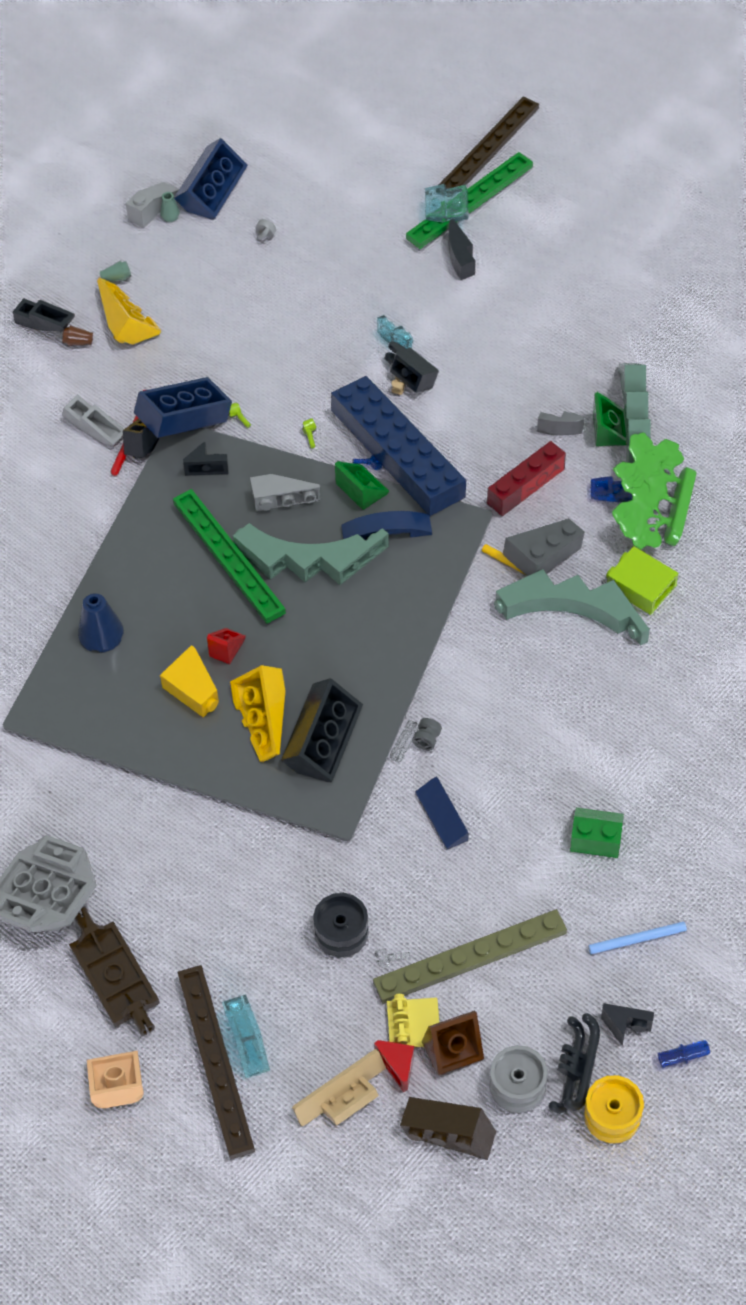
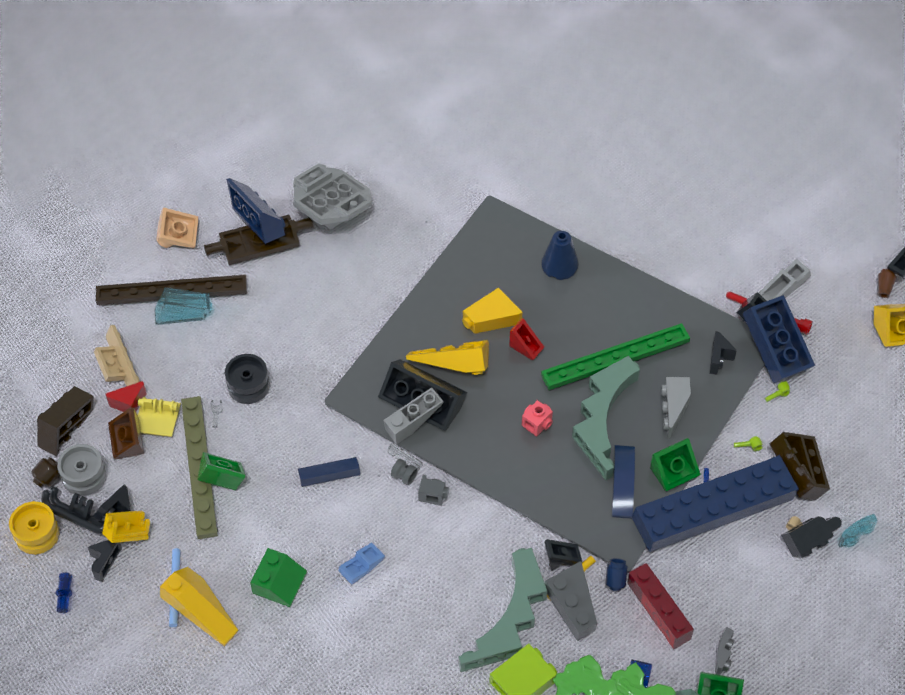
camera: 100 degrees right, 0 degrees up
(81, 975) = (255, 211): none -> dark blue slope
(328, 376) = (803, 462): none -> dark brown wedge
(331, 610) = (537, 418): none -> coral brick
(360, 729) = (412, 416): none -> light grey slope
(443, 702) = (432, 491): none -> dark grey brick
(477, 918) = (221, 471): none -> green slope
(494, 570) = (562, 553): none -> black slope
(503, 516) = (616, 574): none -> dark blue brick
(530, 1124) = (45, 472): none -> dark brown head
(550, 755) = (363, 562): none -> medium blue slope
(553, 1027) = (116, 503): none -> black slope
(588, 998) = (126, 526): none -> yellow hinge
(652, 904) = (196, 601): none -> yellow wedge

